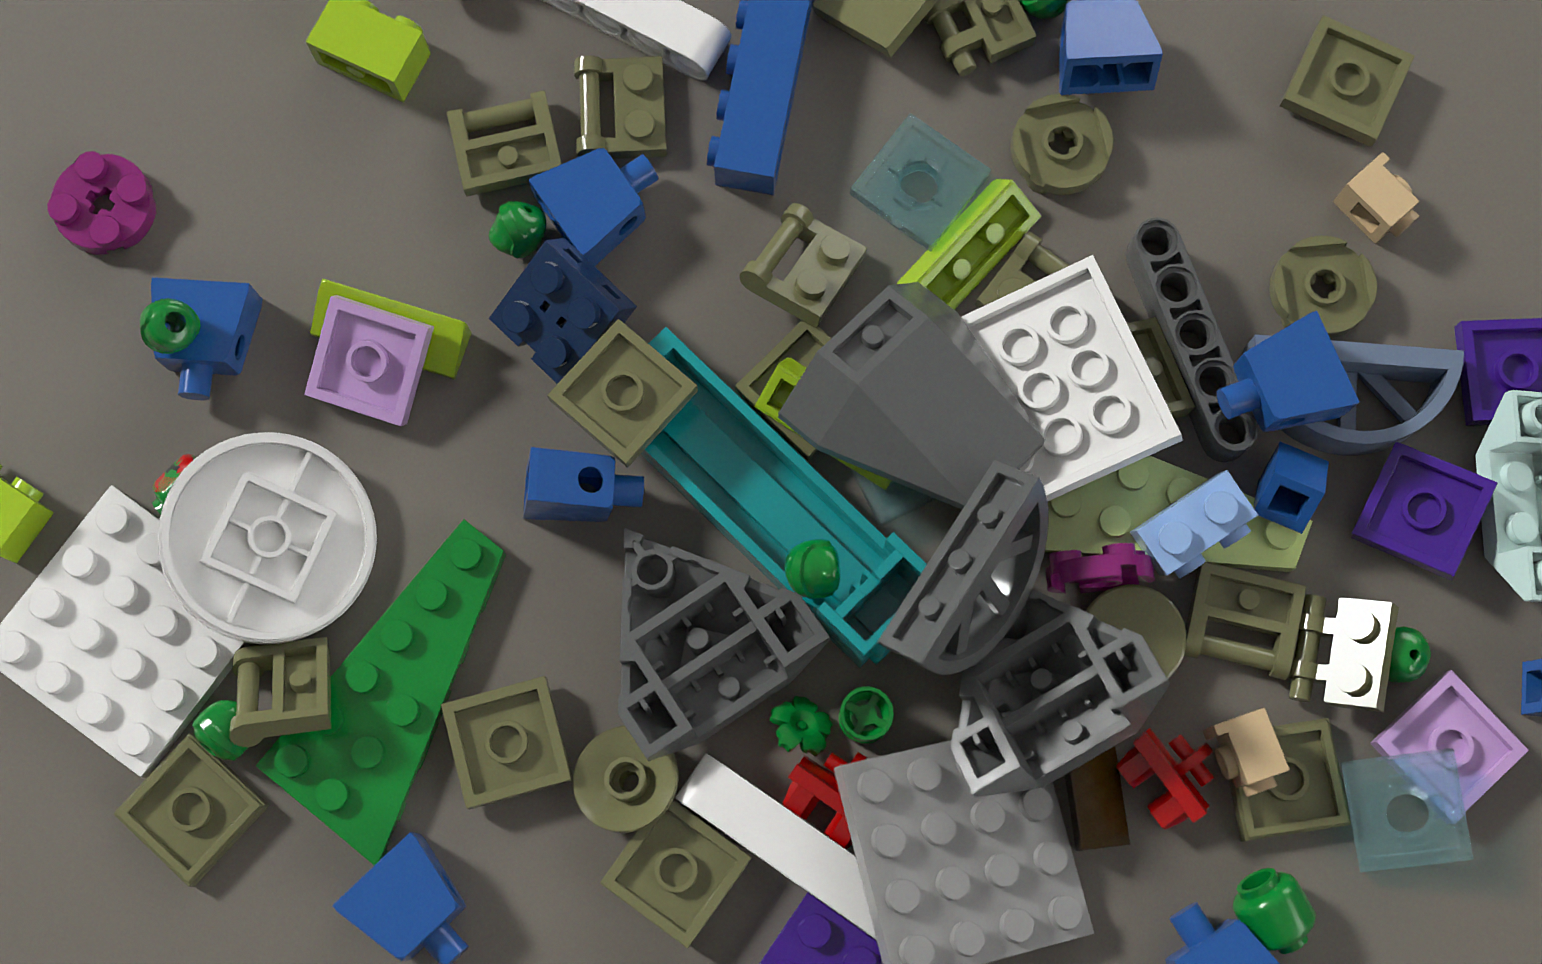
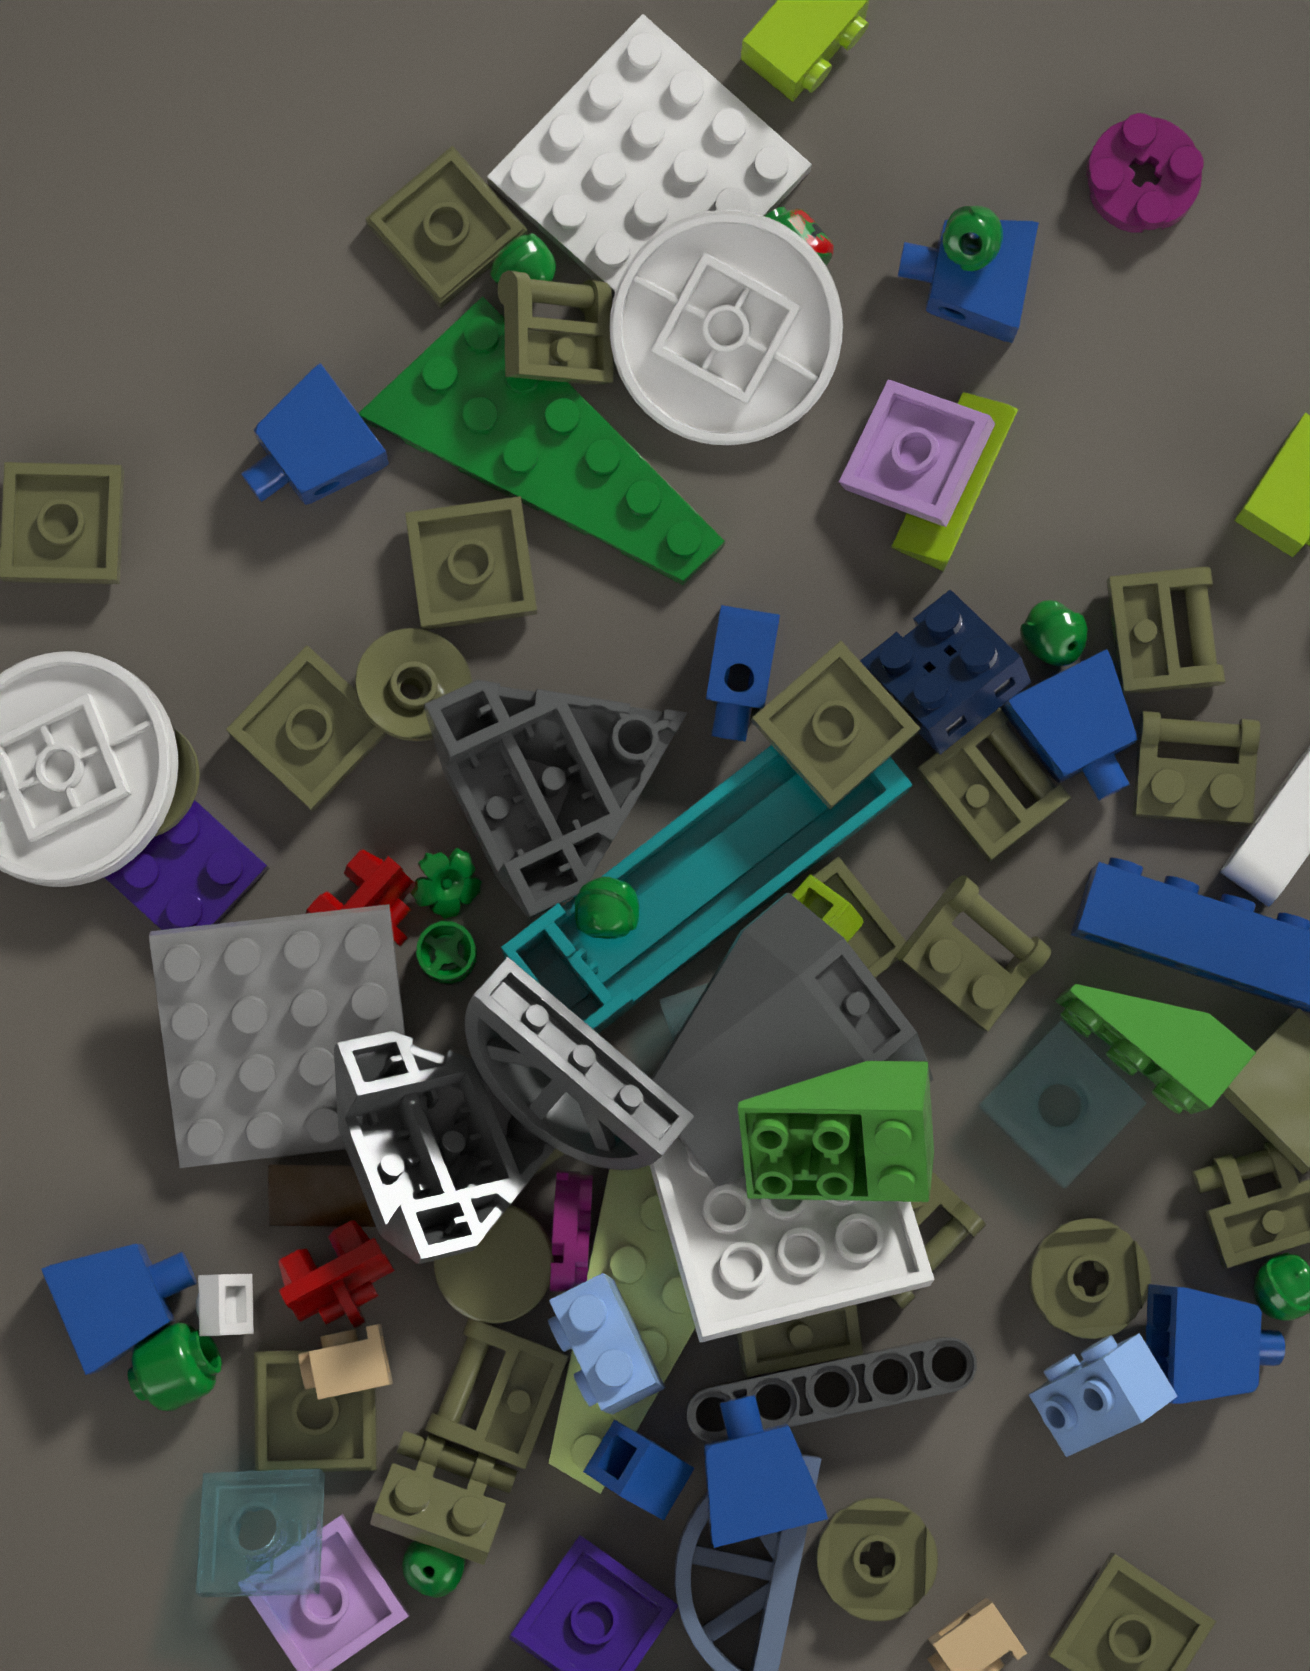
camera: 90 degrees right, 5 degrees up
(668, 275) = (980, 797): none -> olive plate
(778, 838) = (330, 836): white beam -> none
(870, 81) = (1175, 1047): none -> bright green slope
(974, 242) = (985, 1159): lime slope -> none
(988, 332) = (842, 1136): none -> bright green slope
(1162, 114) = (1101, 1394): none -> light blue brick
(1211, 872) = (225, 1304): none -> white plate

